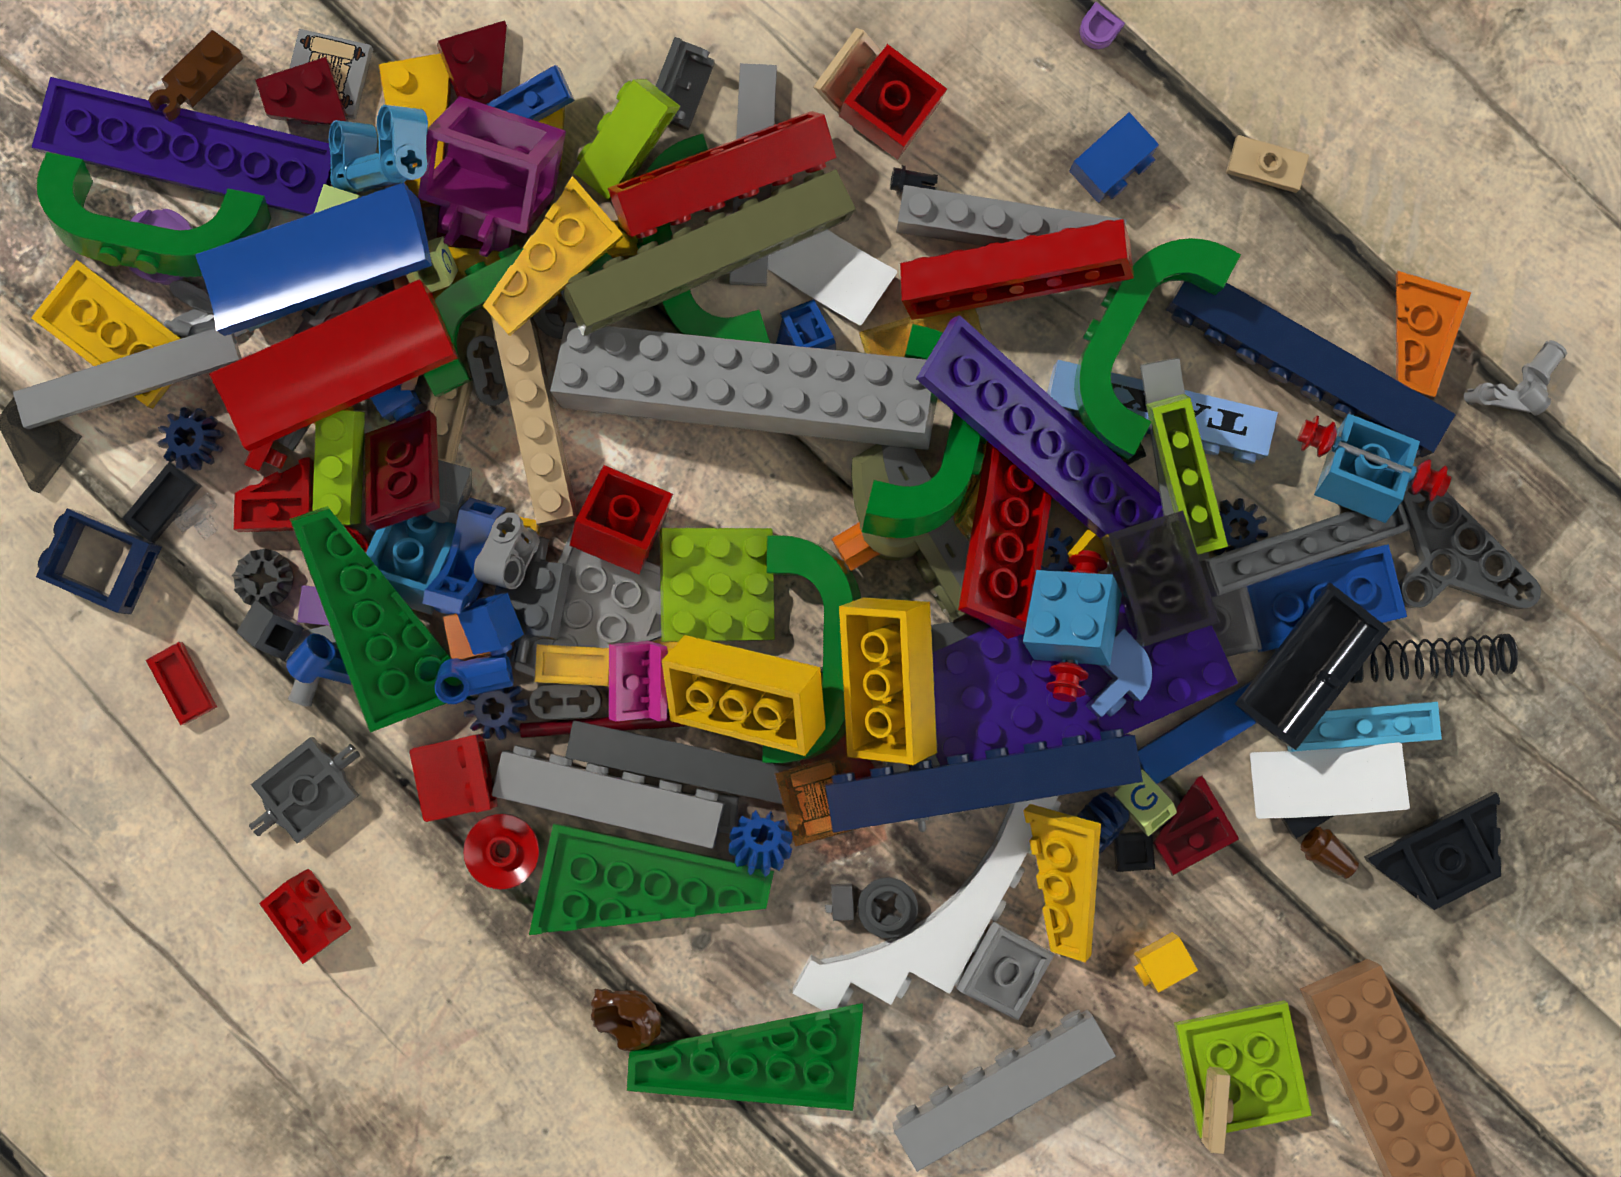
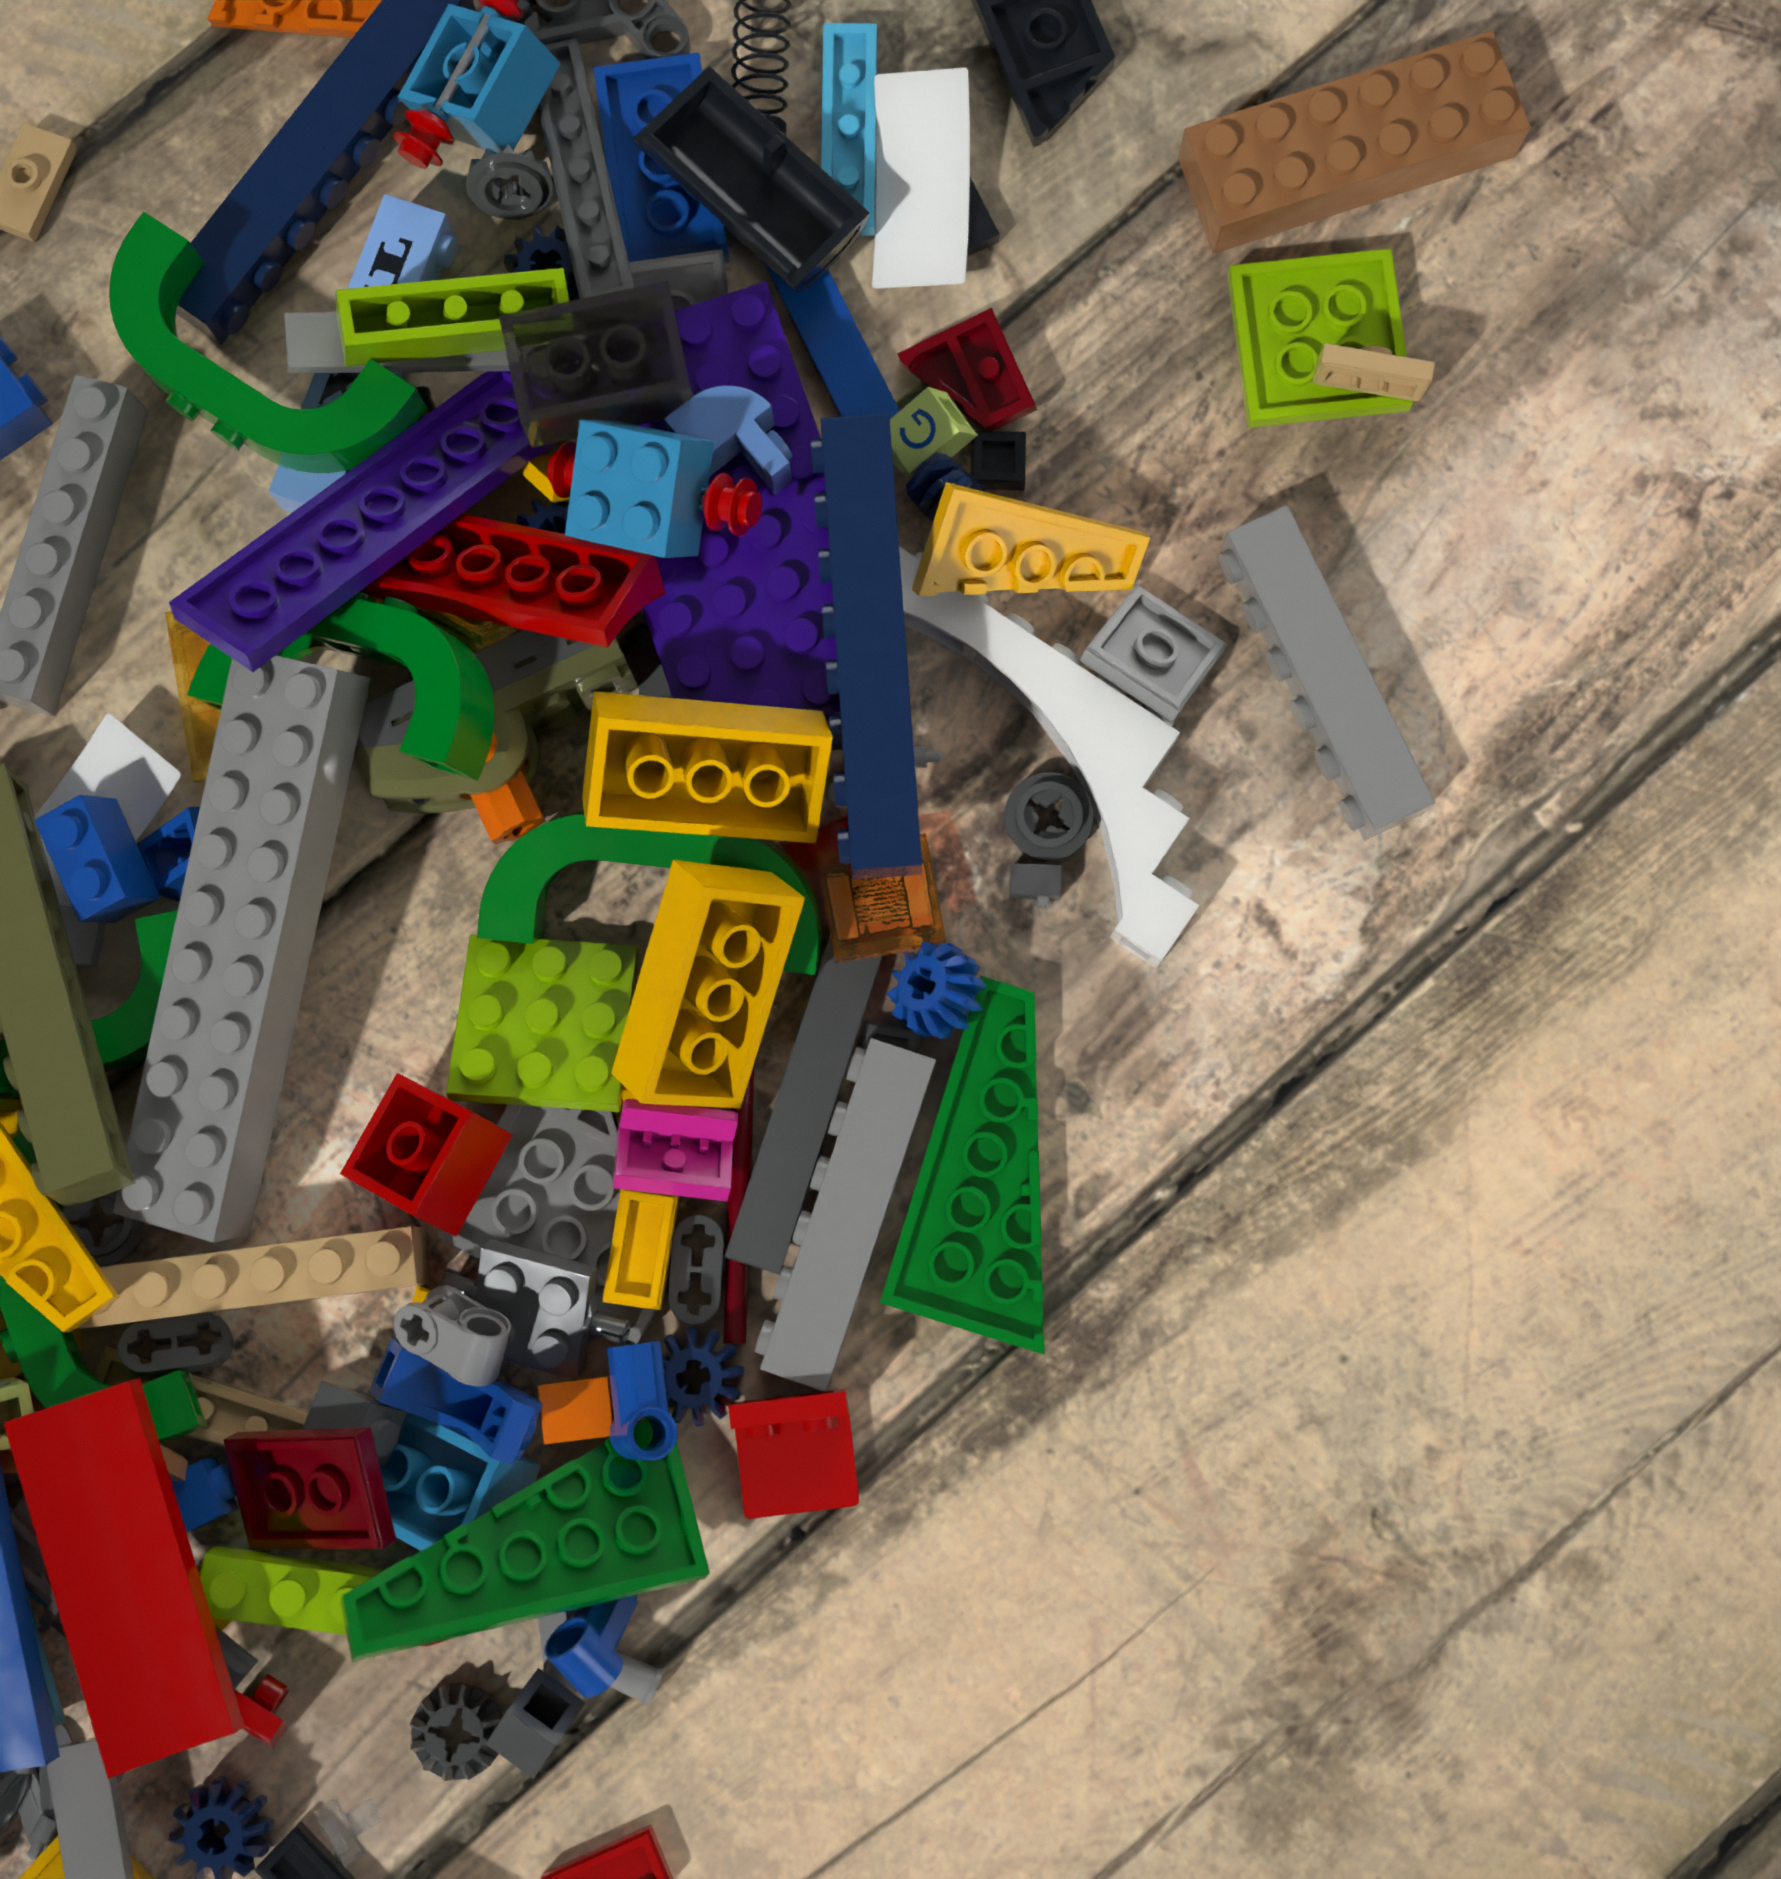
camera: 85 degrees left, 5 degrees down
(275, 500) = (337, 1700): red wing -> none
(304, 790) = (792, 1690): dark grey plate -> none
(305, 915) = (986, 1706): red bracket -> none
(310, 607) = (510, 1650): medium lavender tile -> none
(482, 854) = (919, 1418): red dish -> none
(491, 625) = (562, 1365): blue brick -> none
(627, 1016) = (1179, 1215): reddish brown hair -> none
(781, 1061) = (1263, 992): green wing -> none
(797, 278) = (97, 859): none -> blue brick
(1017, 269) = (124, 531): red brick -> none
(1164, 963) = (1160, 429): yellow brick -> none
(1294, 505) = (516, 199): none -> dark grey gear
(1328, 852) = (1022, 191): reddish brown cone -> none

